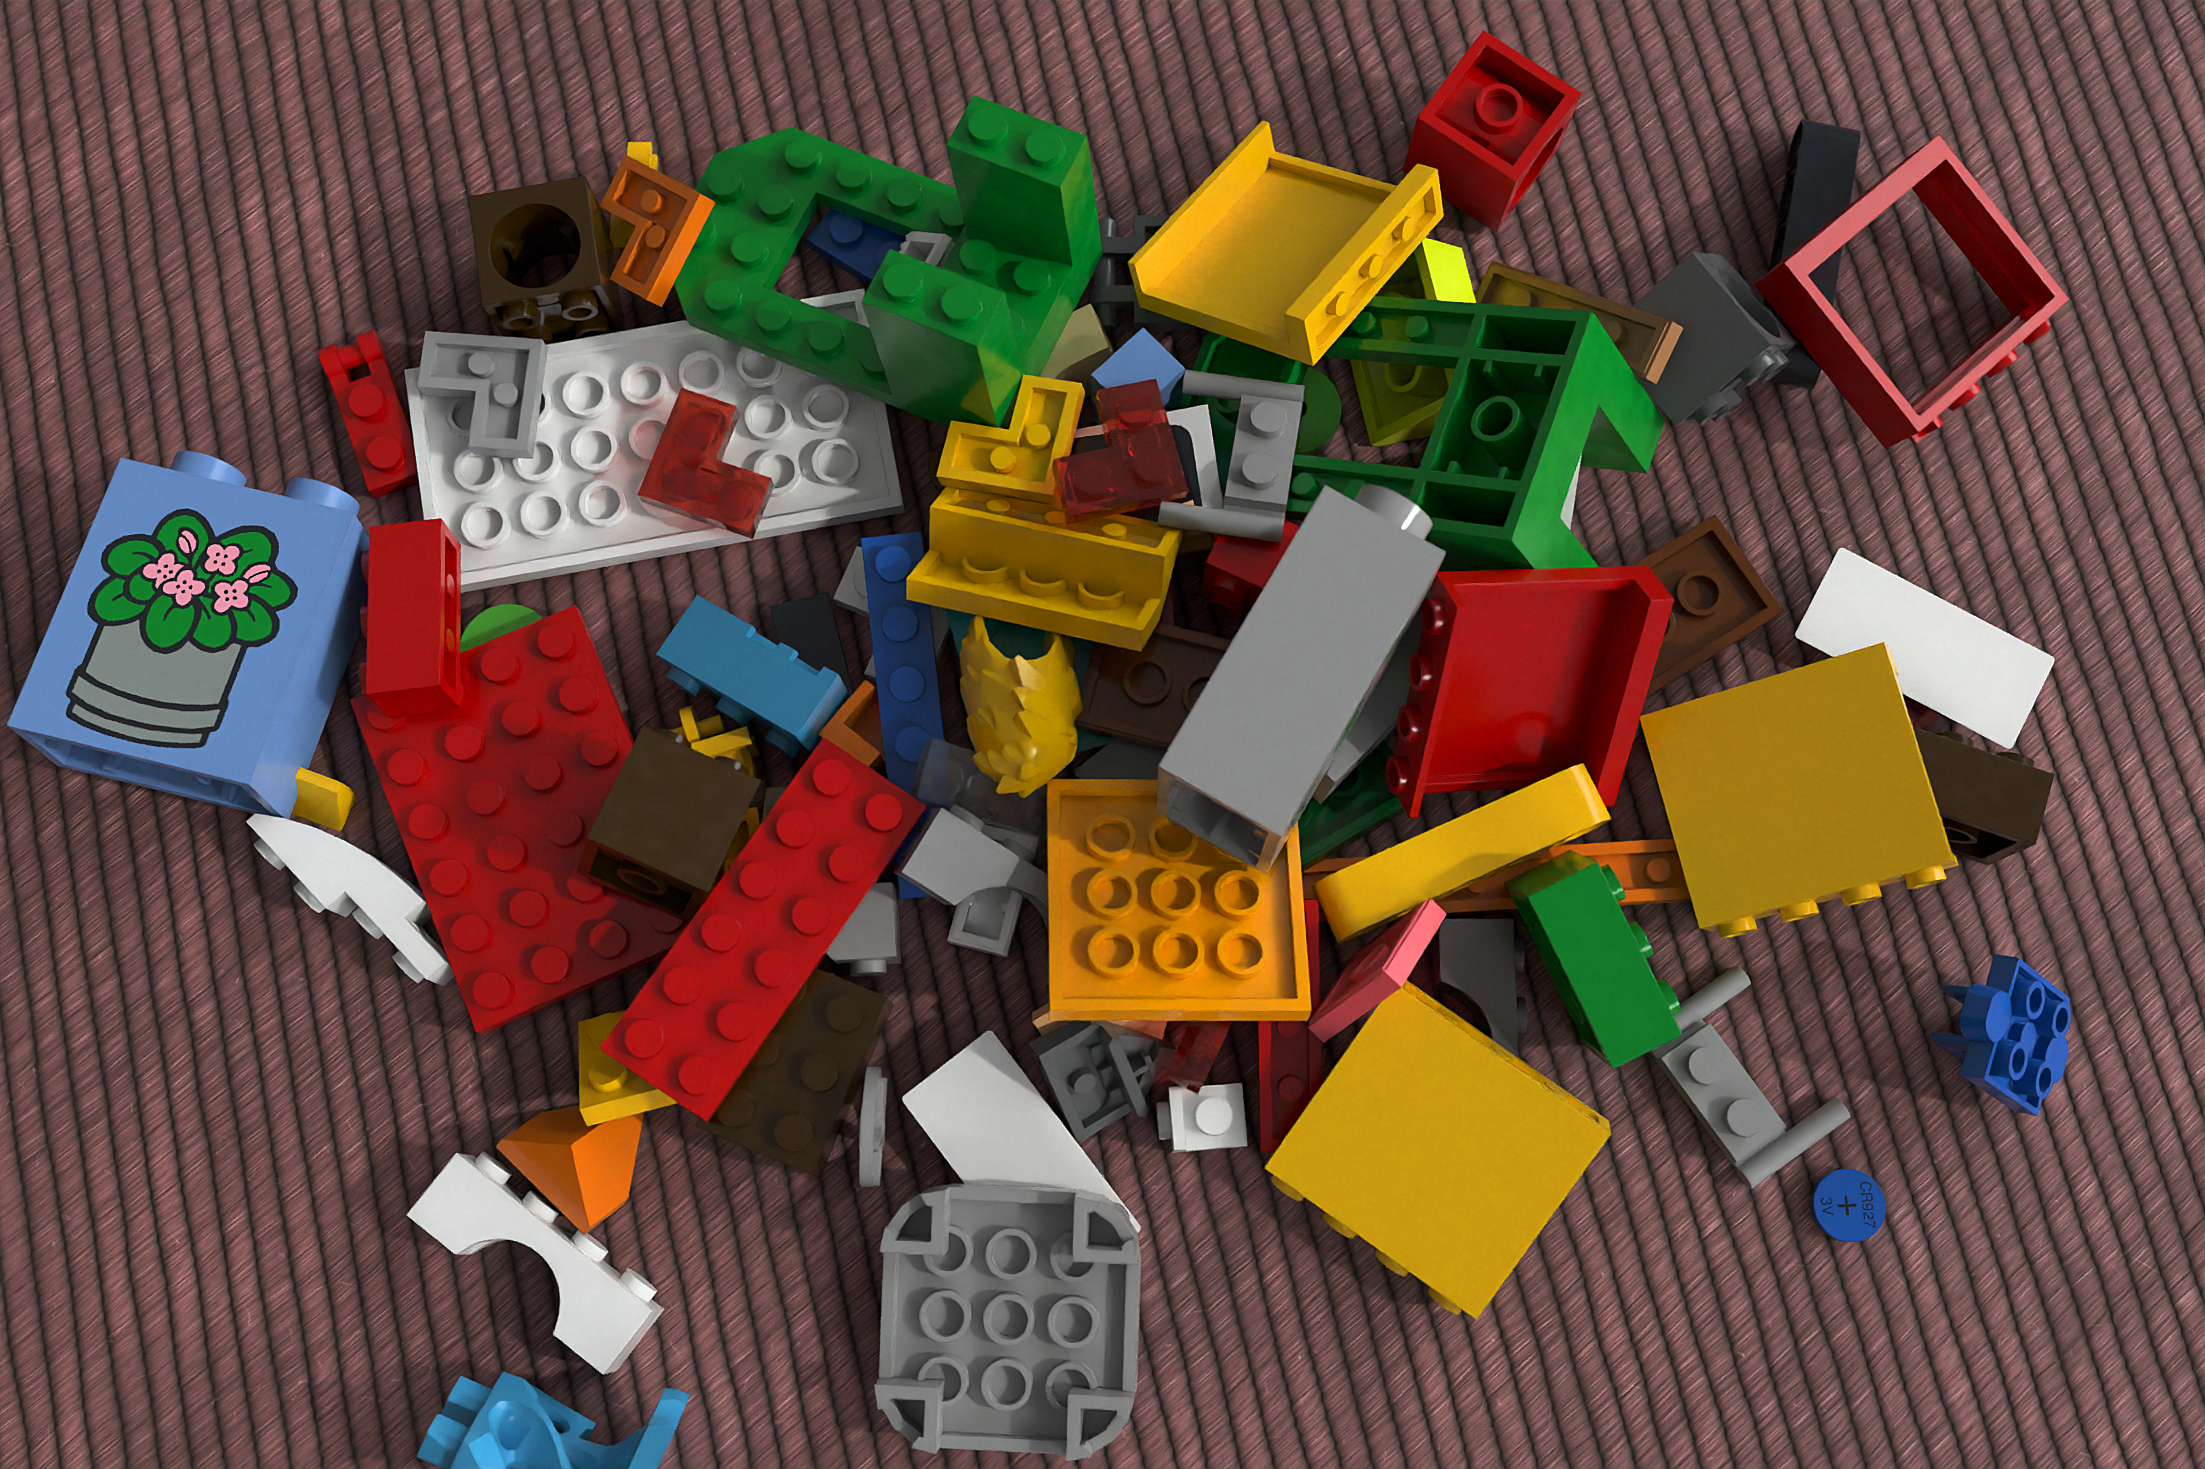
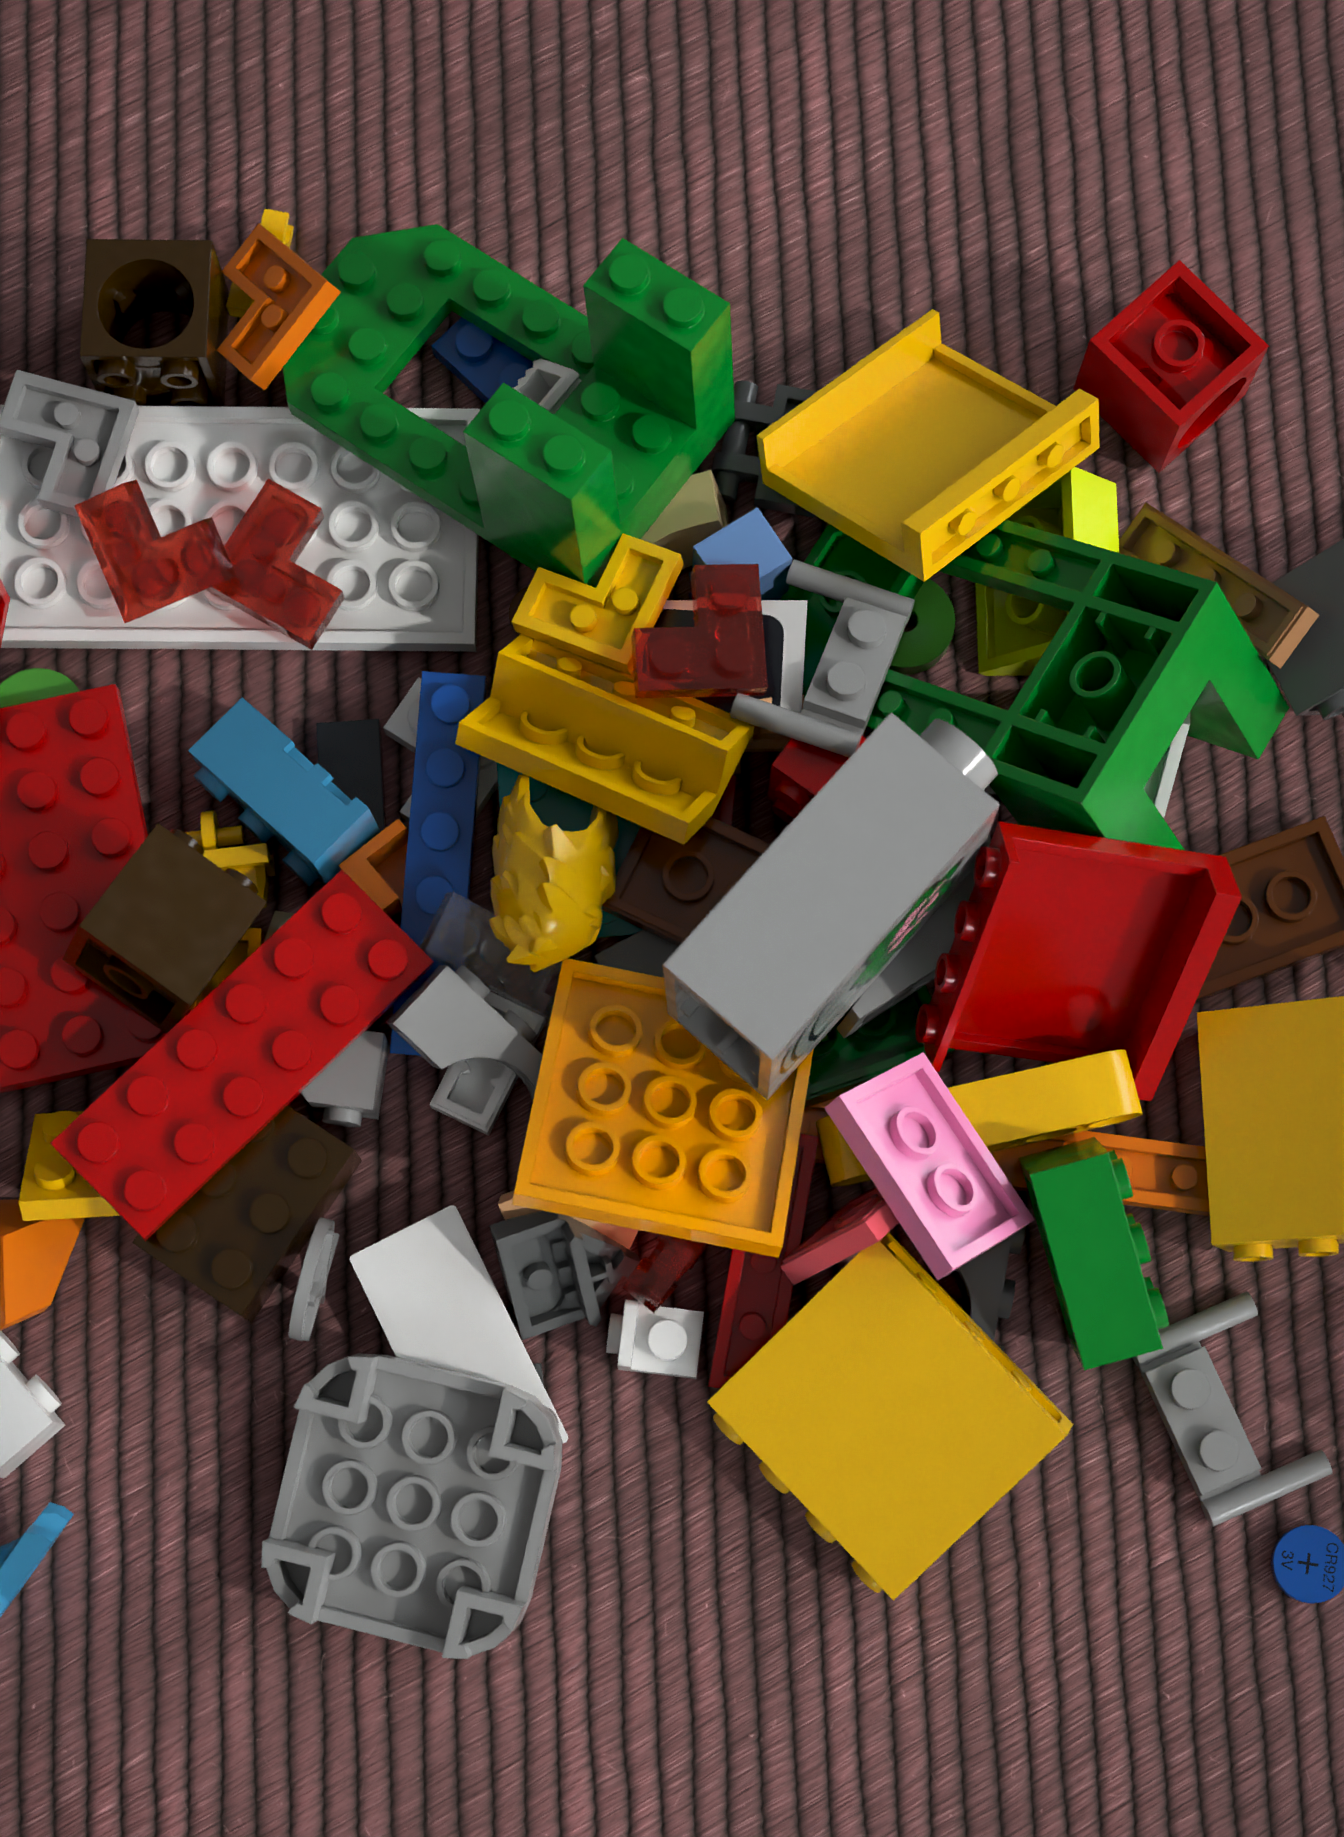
camera: 10 degrees right, 0 degrees up
(582, 491) = (141, 565): none -> clear red plate
(1431, 906) = (929, 1164): none -> bright pink plate

